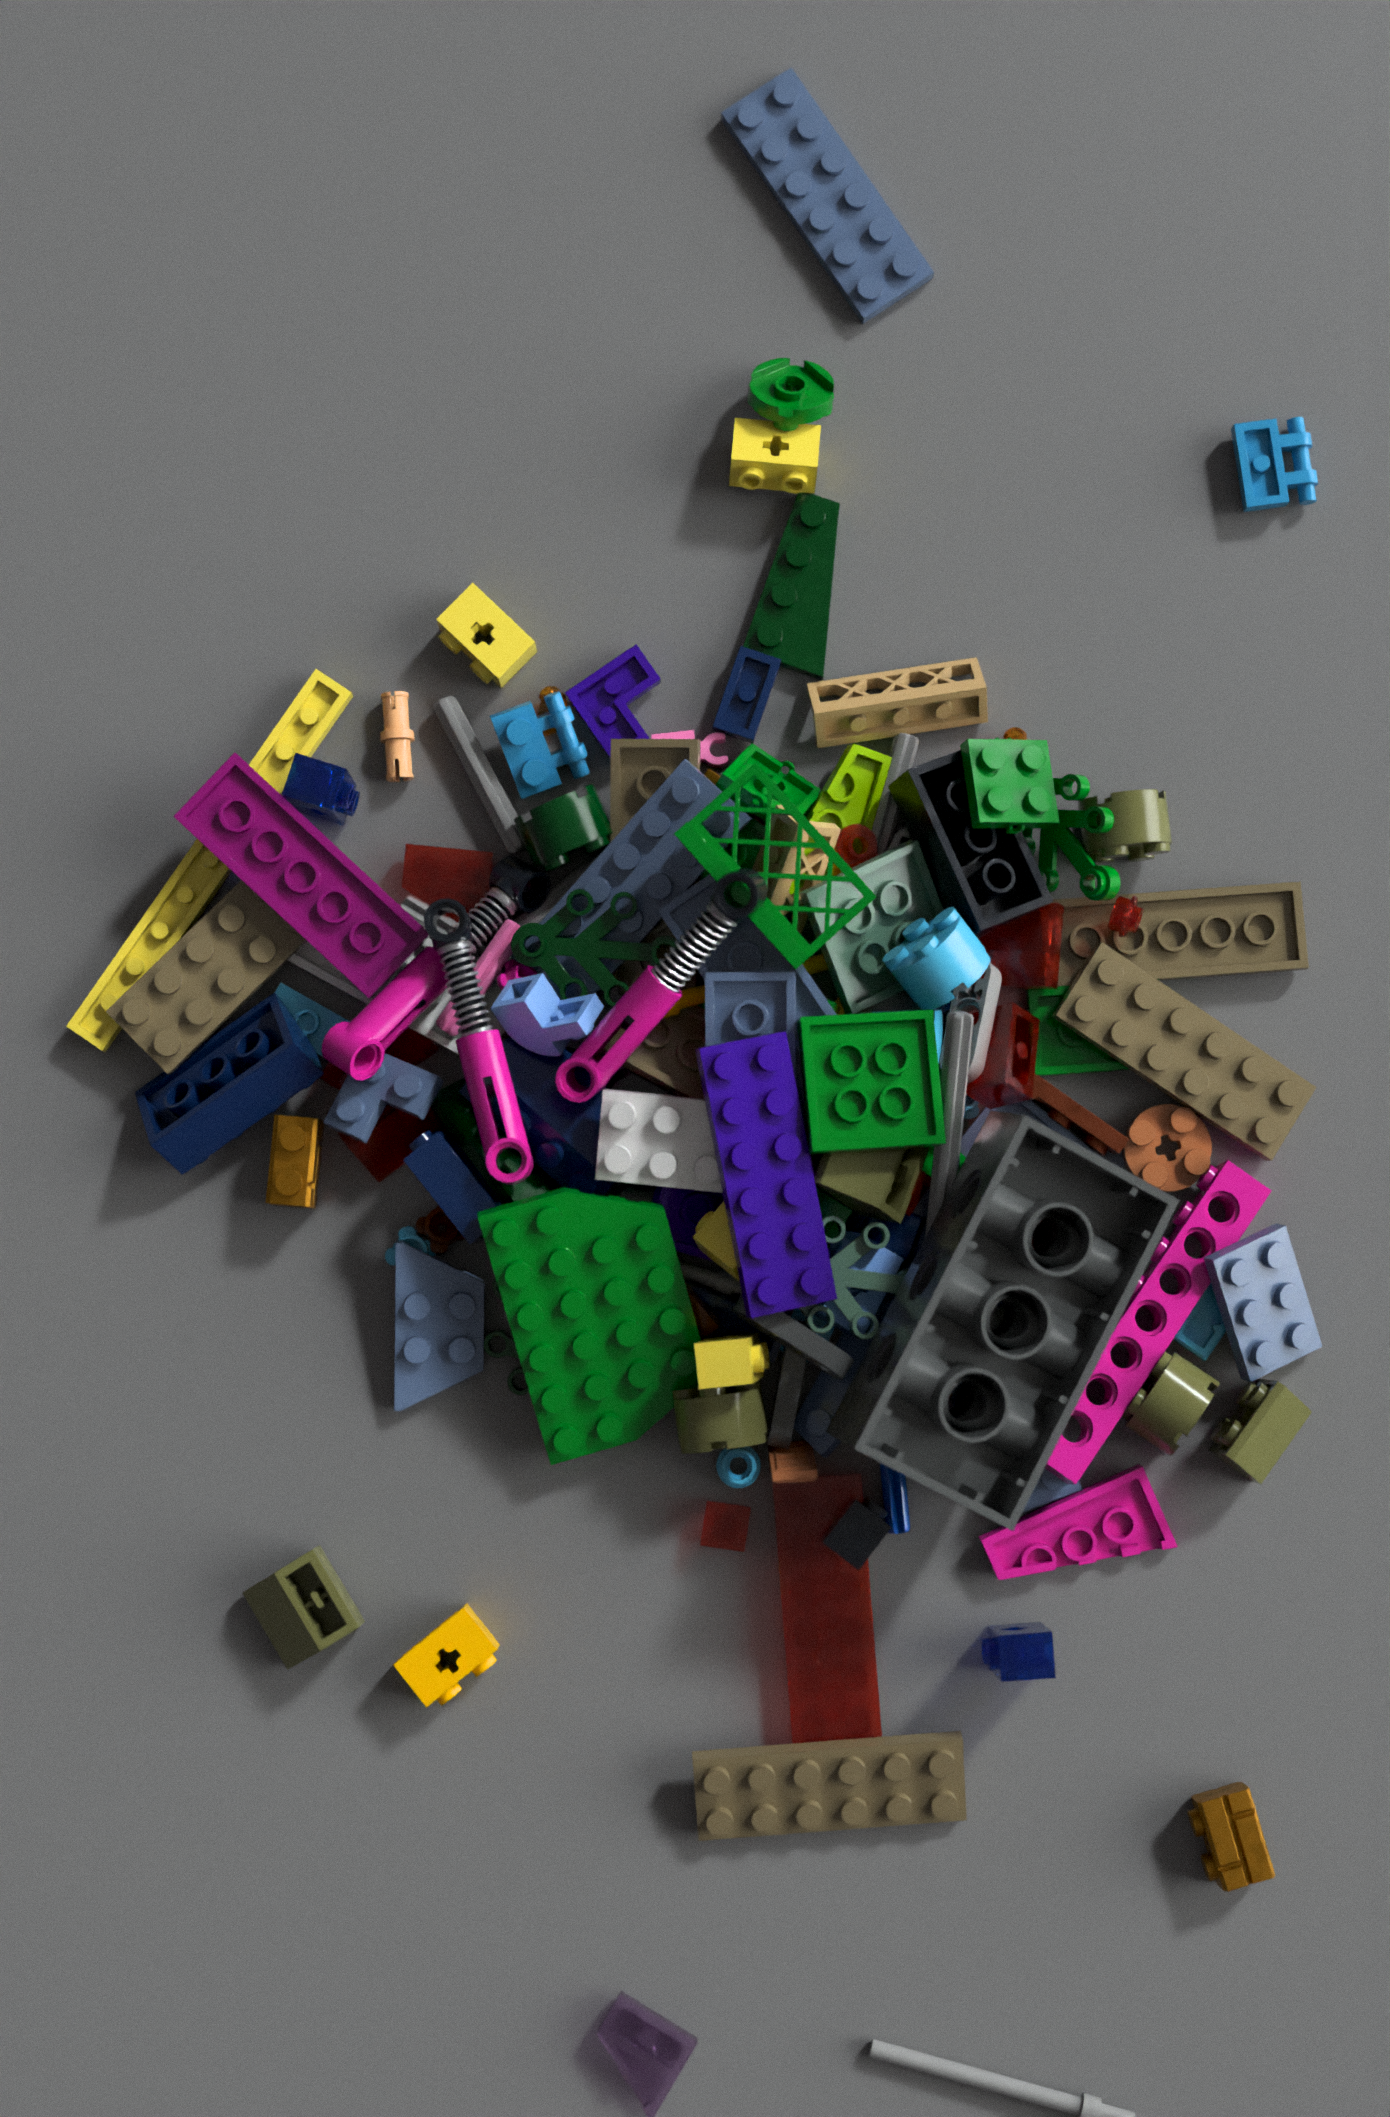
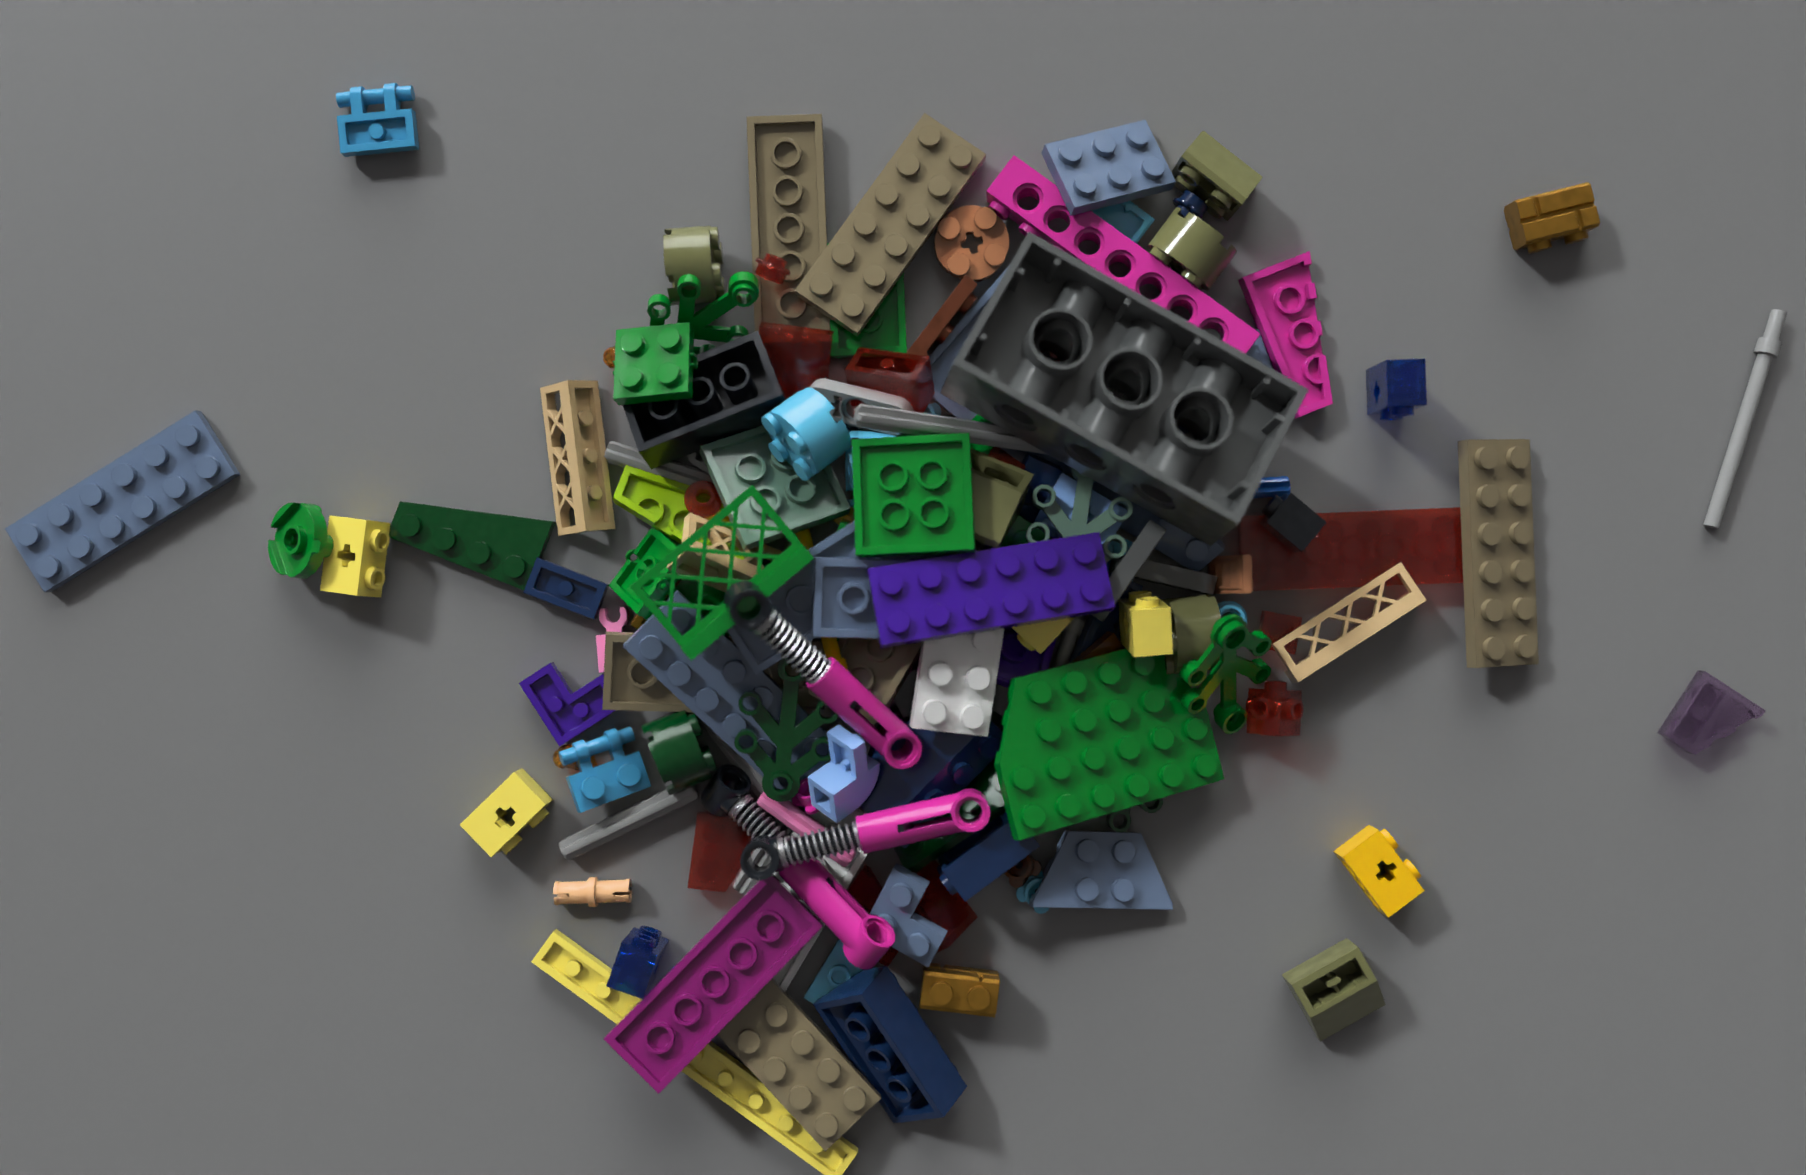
camera: 90 degrees left, 5 degrees up
(634, 1522) = (1274, 710): none -> clear red brick
(719, 1452) = (1226, 637): none -> green plant
(725, 1616) = (1349, 638): none -> tan fence
(1222, 1403) = (1190, 203): none -> dark blue plate

